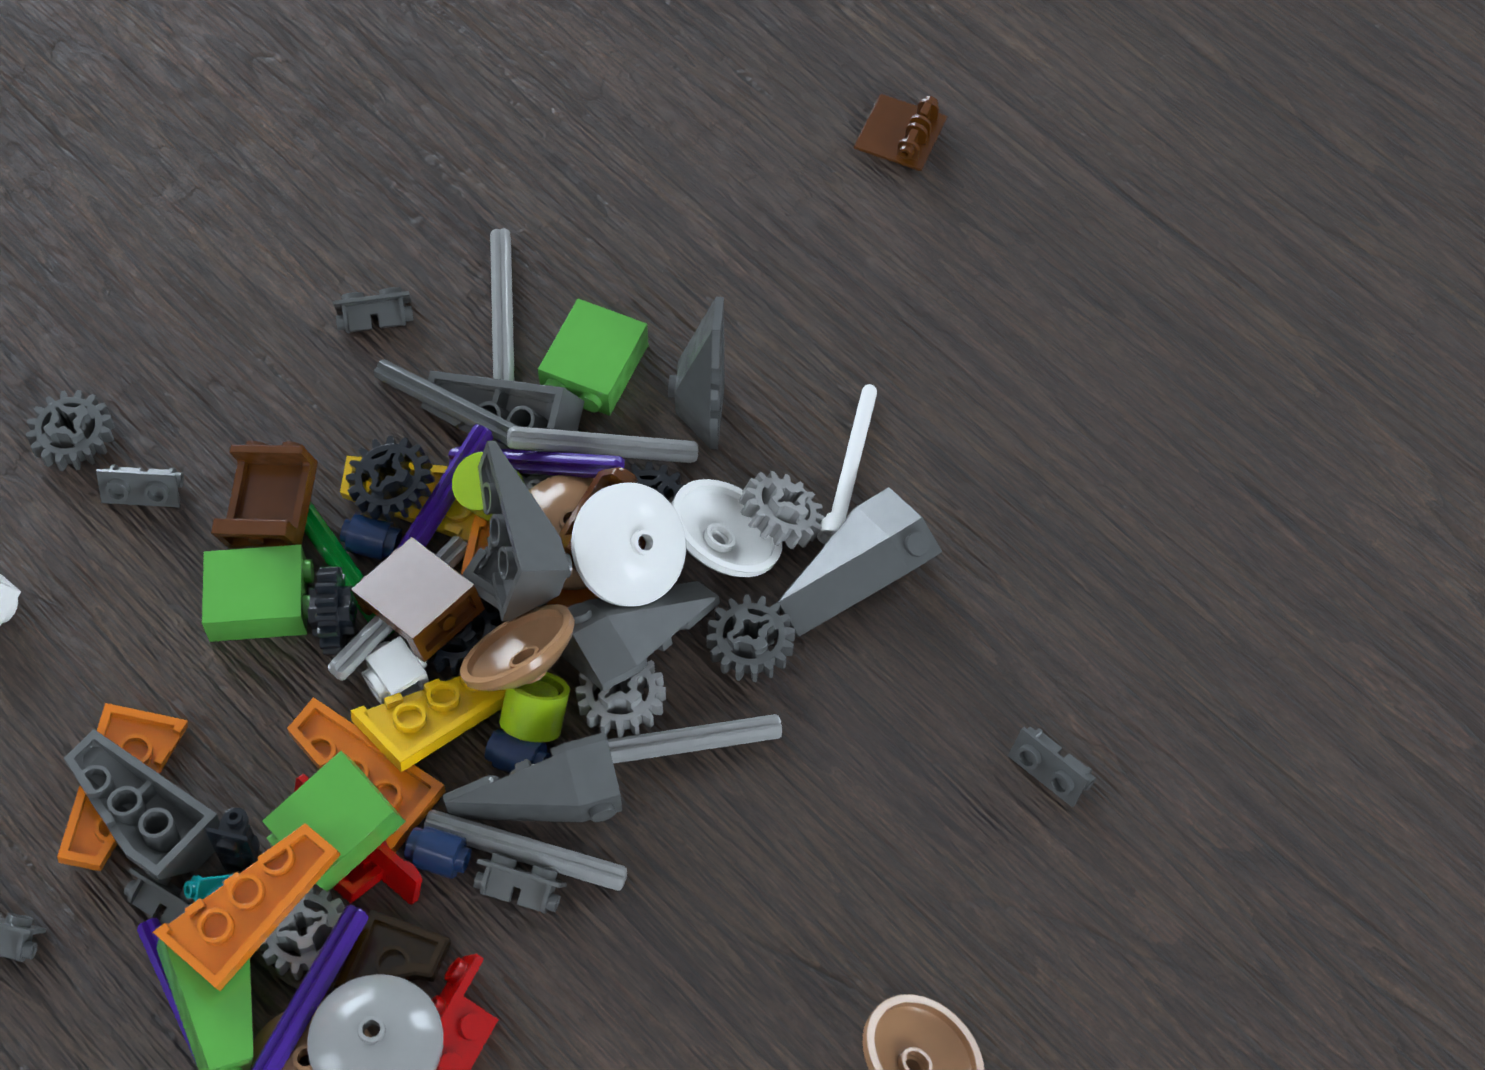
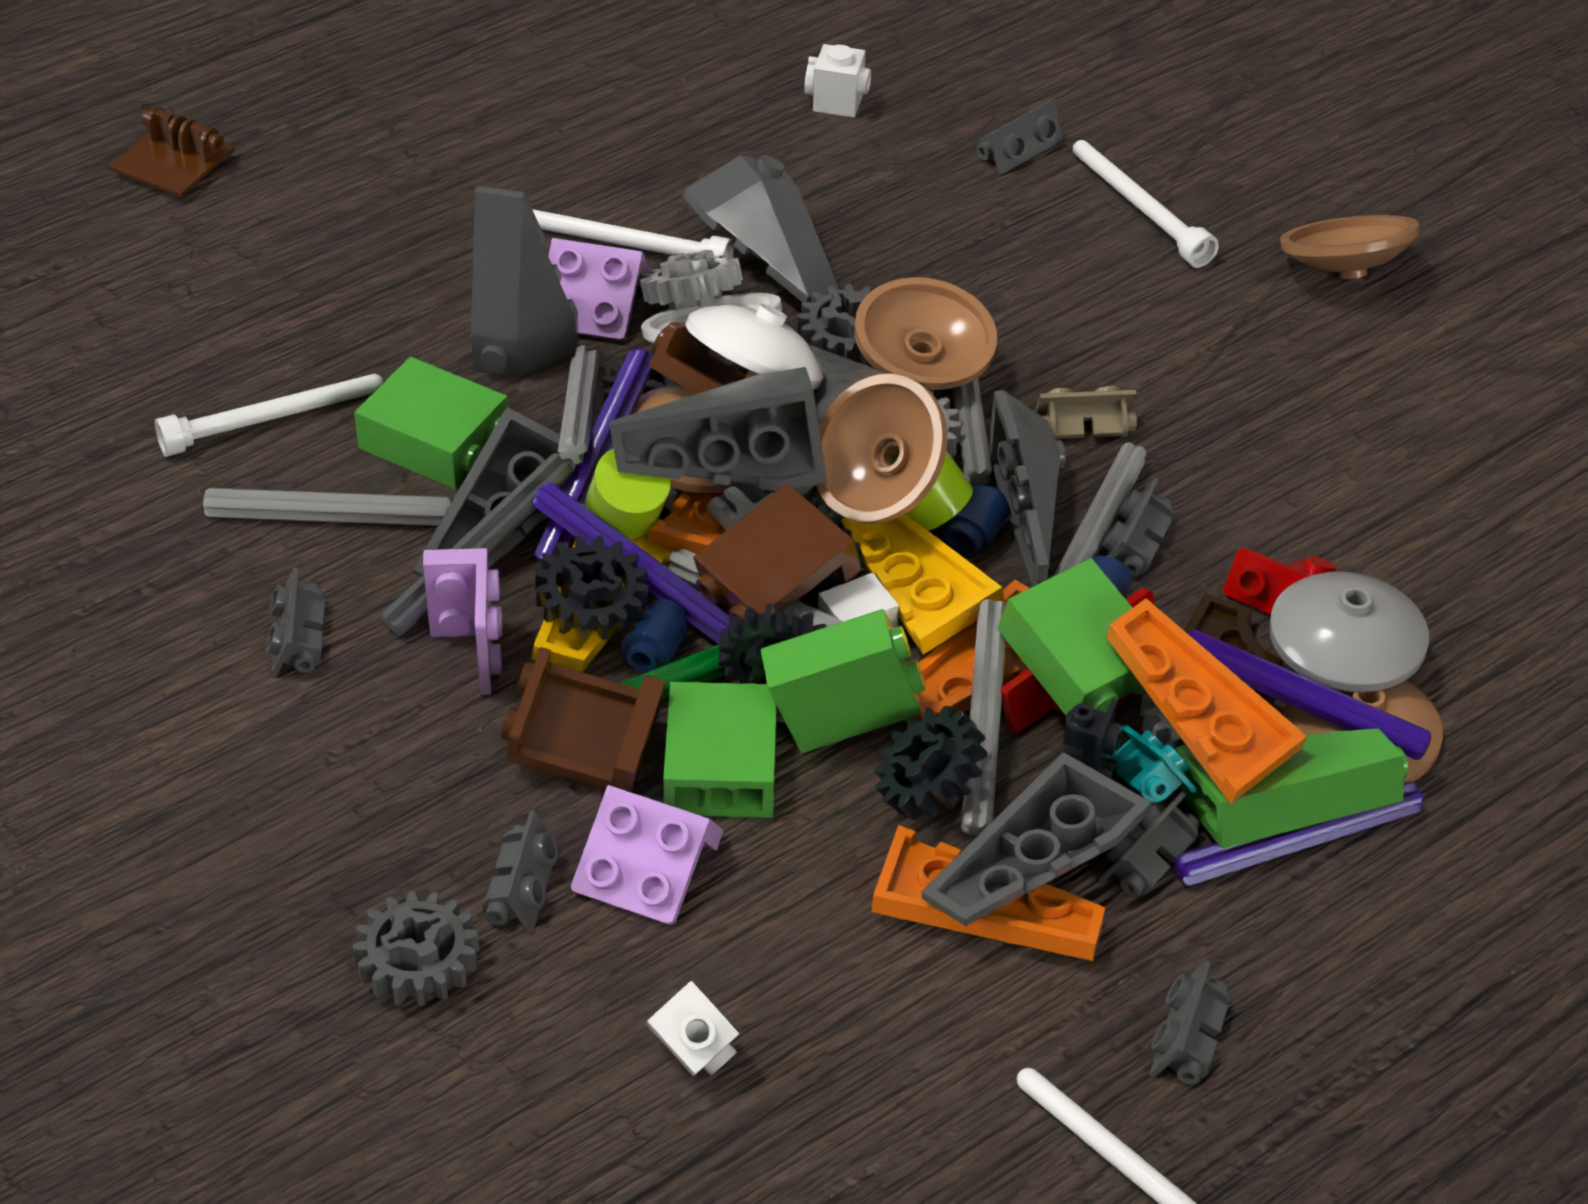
camera: 85 degrees left, 15 degrees down
(162, 555) = (642, 854): none -> lavender bracket
(232, 731) = (930, 762): none -> black gear
(277, 768) = (985, 713): none -> light grey axle
(290, 655) = (843, 680): none -> bright green brick
(363, 413) = (460, 604): none -> lavender bracket
(568, 199) = (177, 433): none -> white piece
(662, 819) = (1105, 407): none -> dark tan hinge
(706, 663) = (926, 332): none -> medium nougat dish
(775, 438) = (600, 284): none -> lavender bracket
(916, 923) = (1194, 244): none -> white piece
(1096, 598) = (837, 80): none -> white brick

